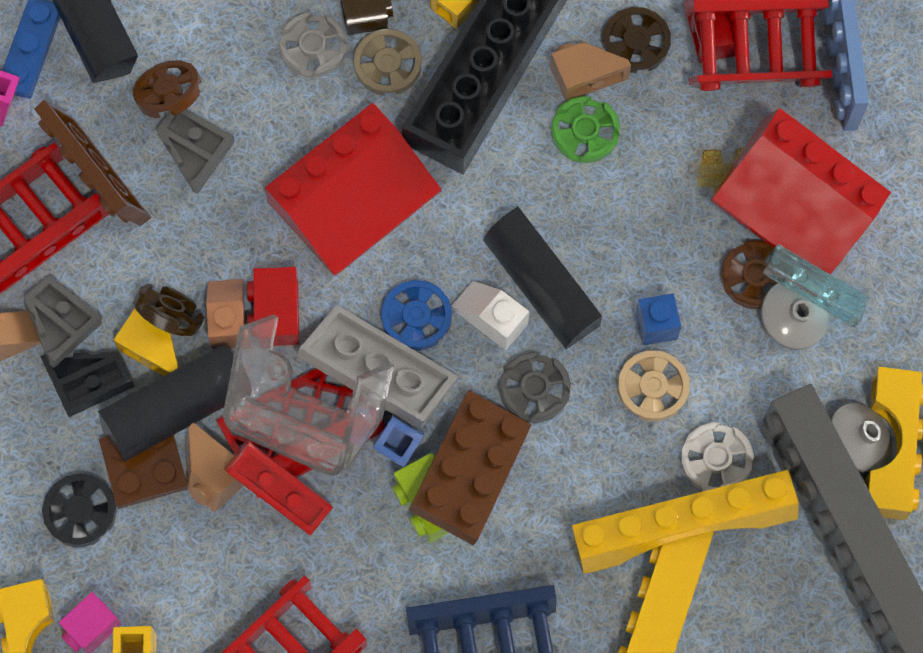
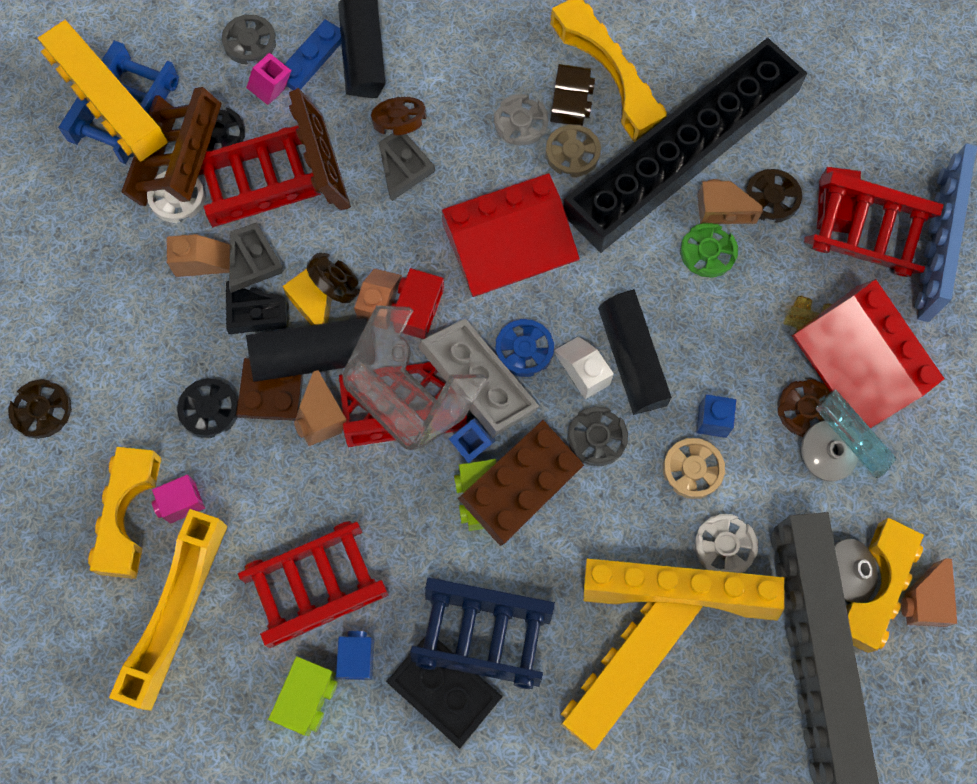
camera: 20 degrees right, 0 degrees up
(278, 487) = (363, 444): red tile -> none

